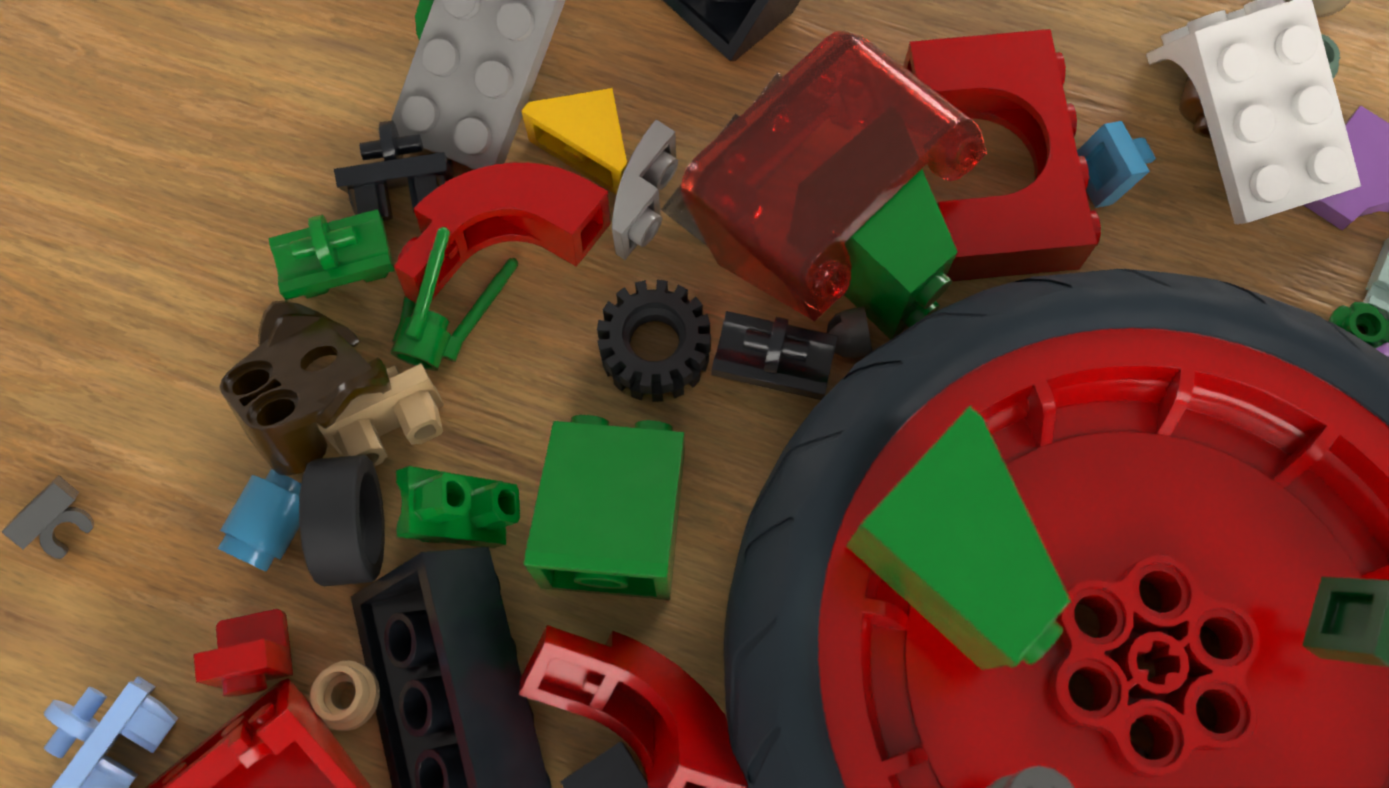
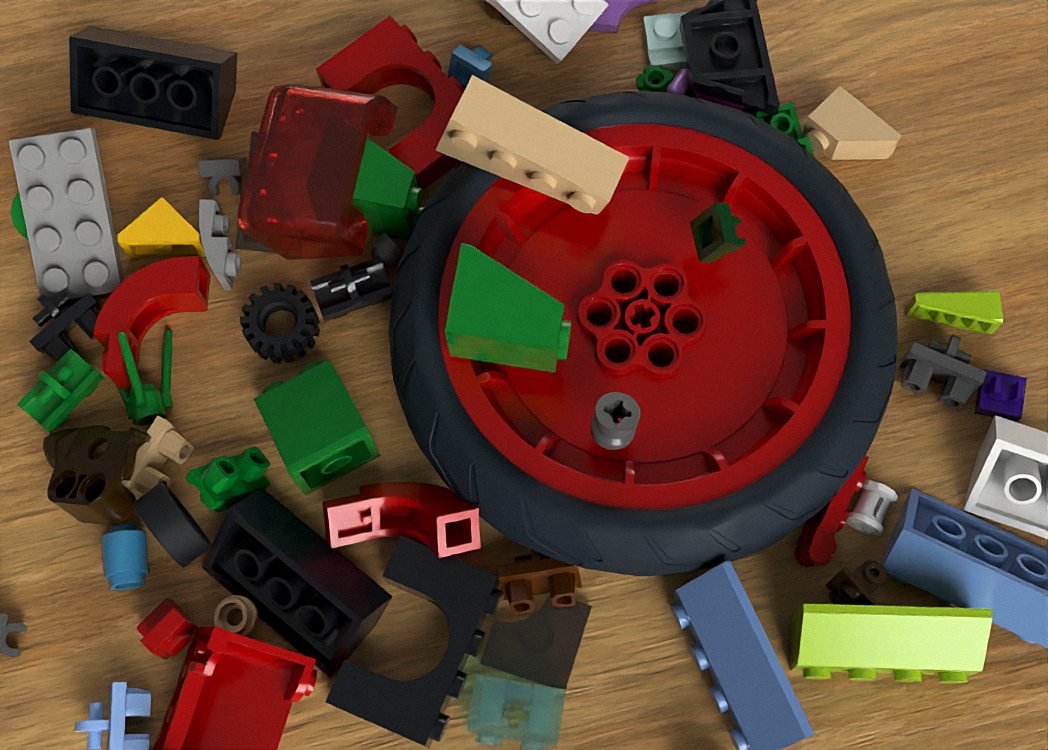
camera: 30 degrees left, 0 degrees up
(710, 99) = (223, 168): none -> dark grey tile
(1155, 326) = (531, 148): none -> tan wedge

